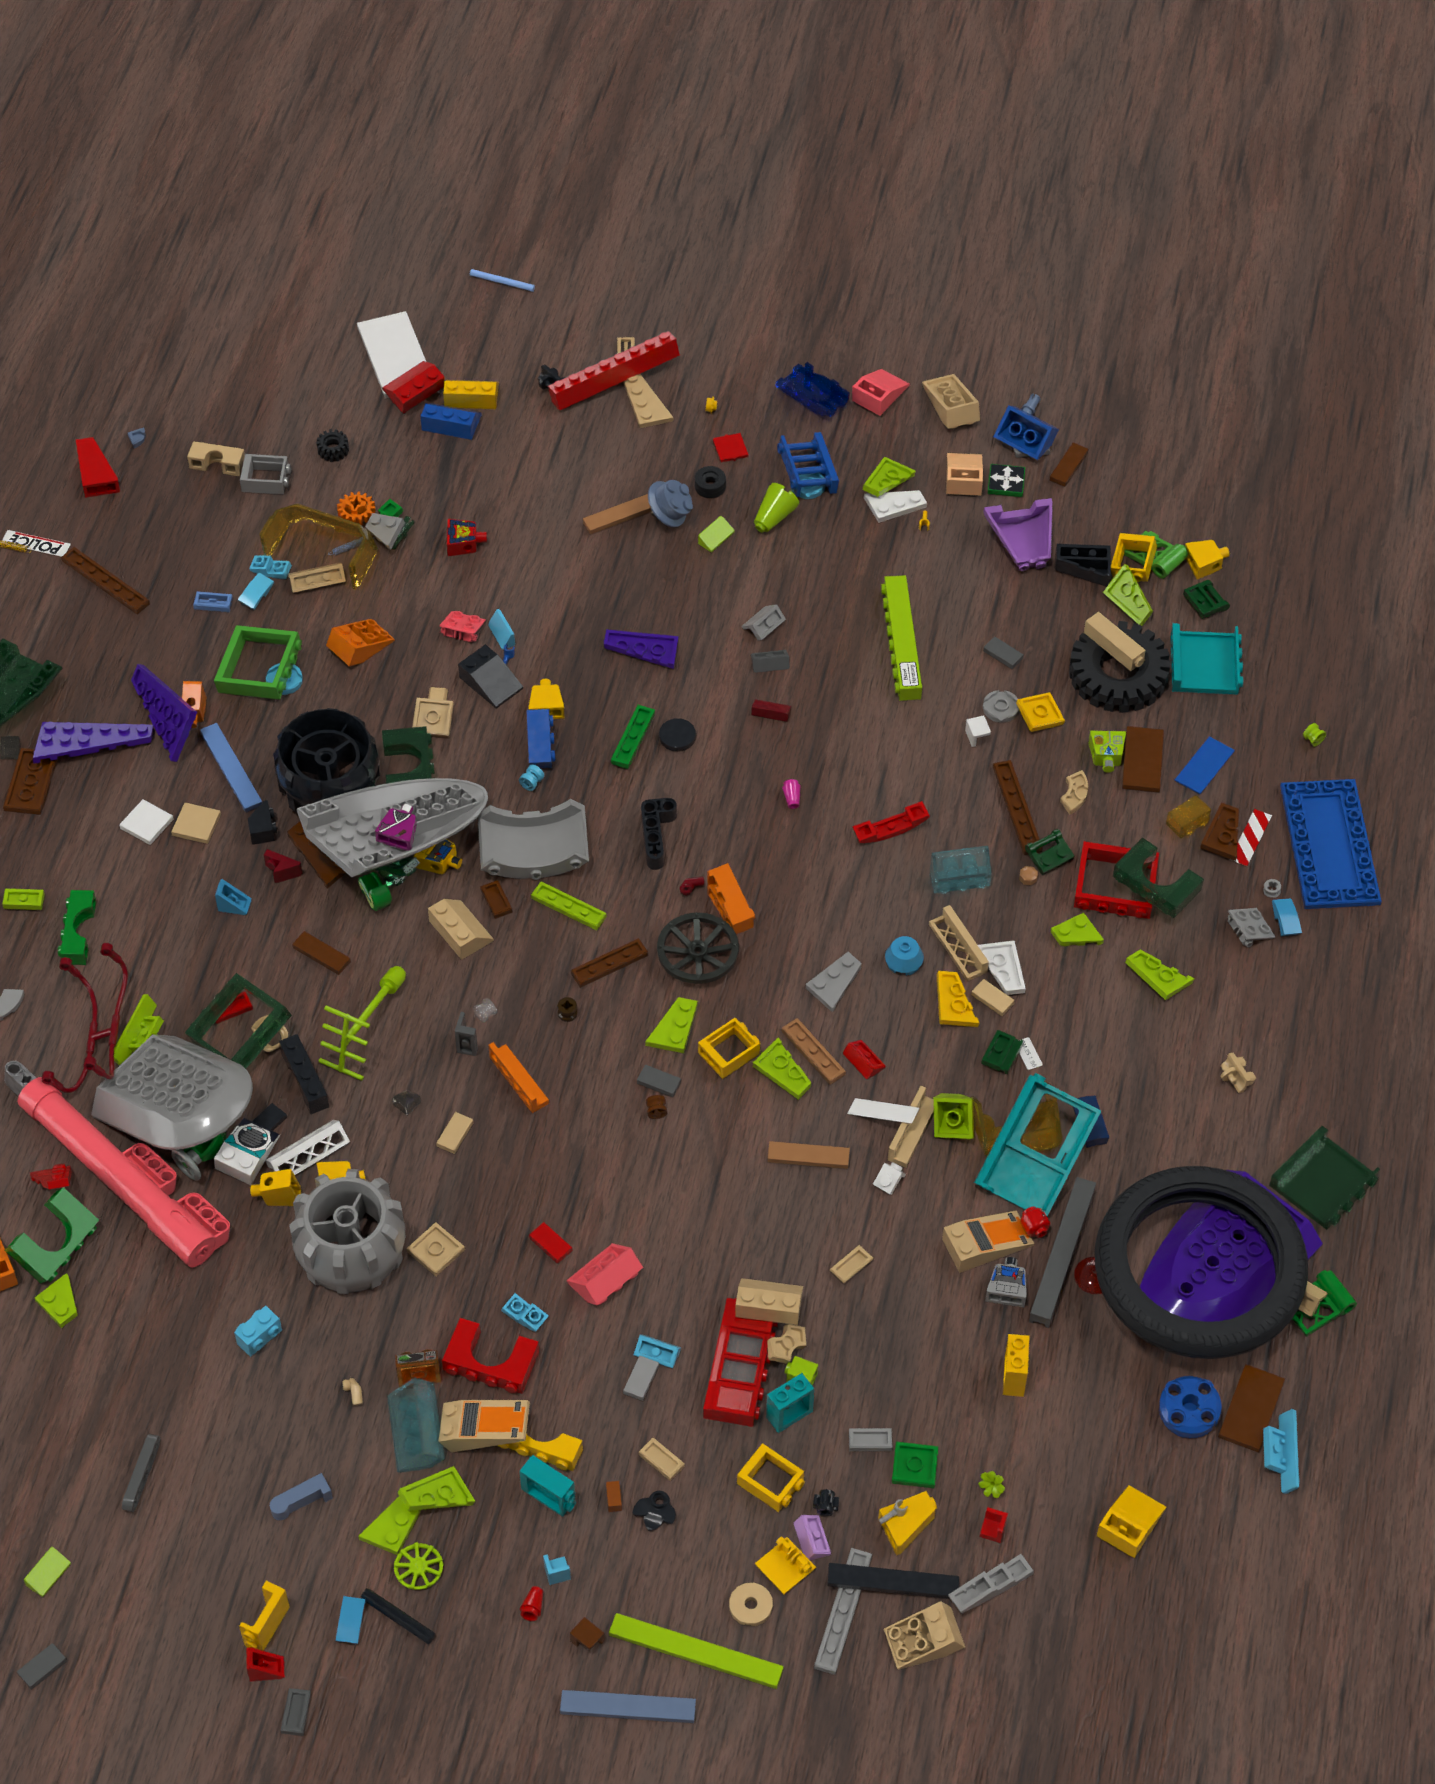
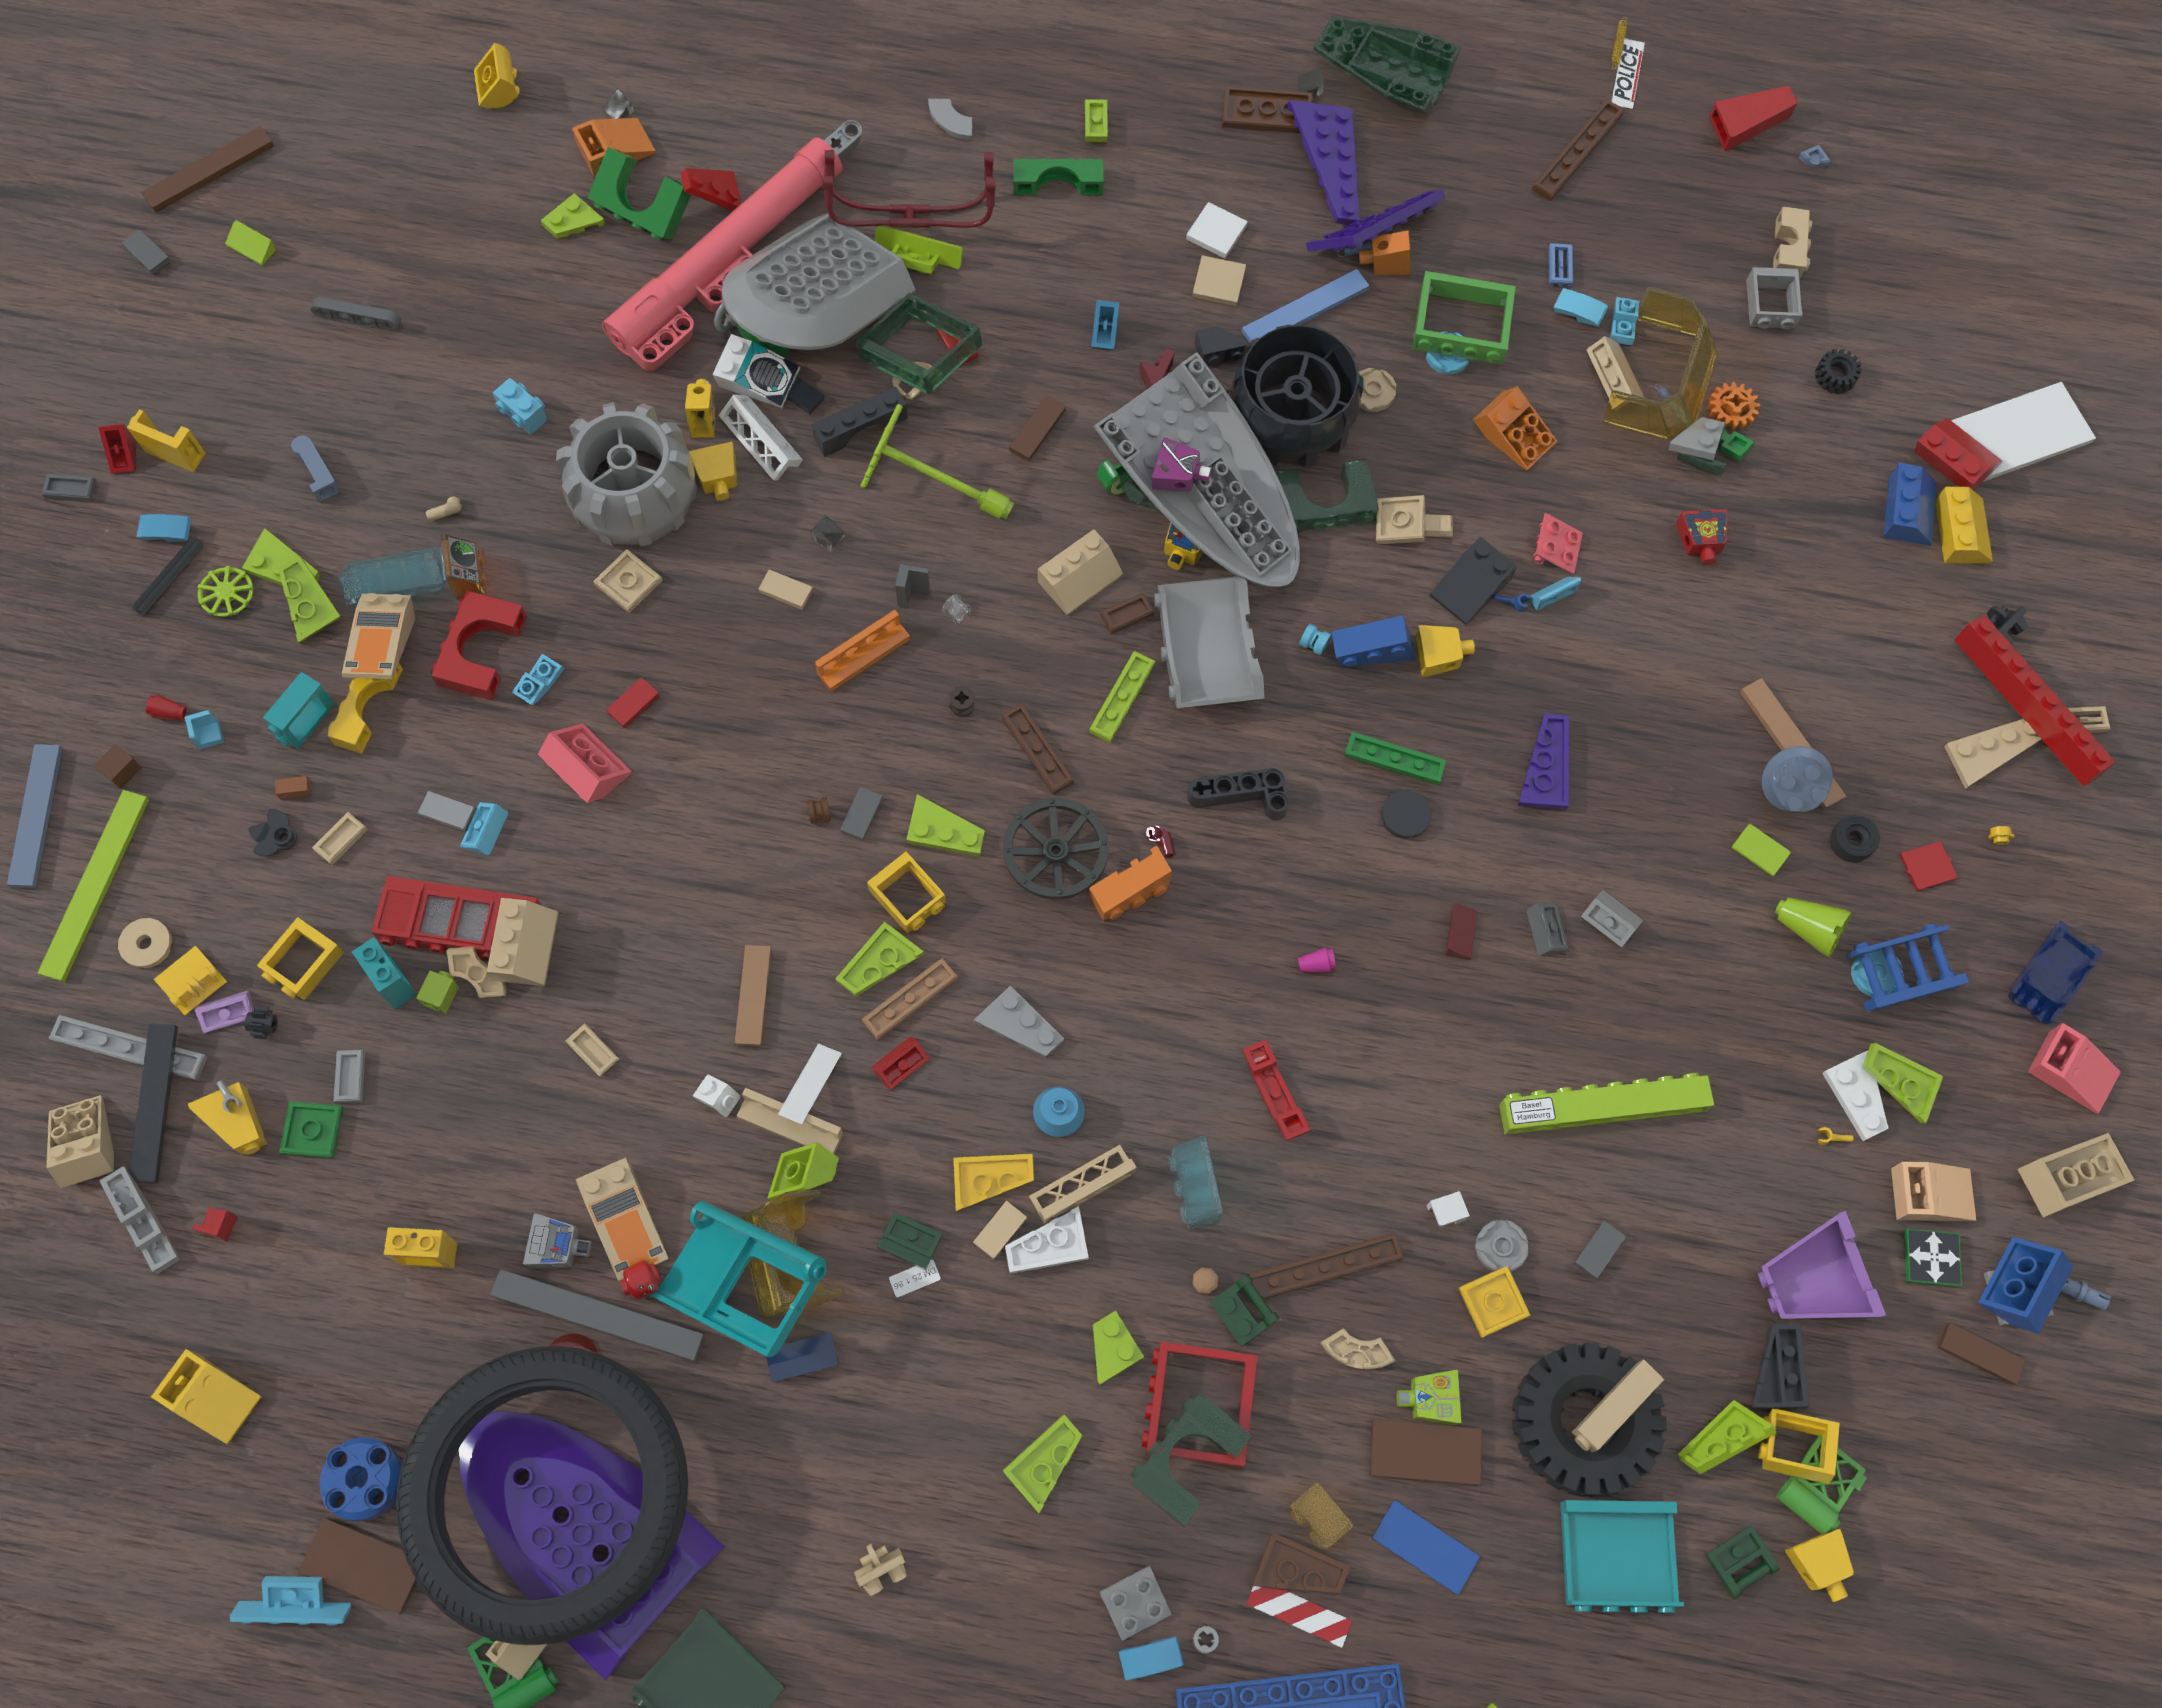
camera: 85 degrees right, 15 degrees up
(992, 1484) = (274, 1223): lime plant -> none

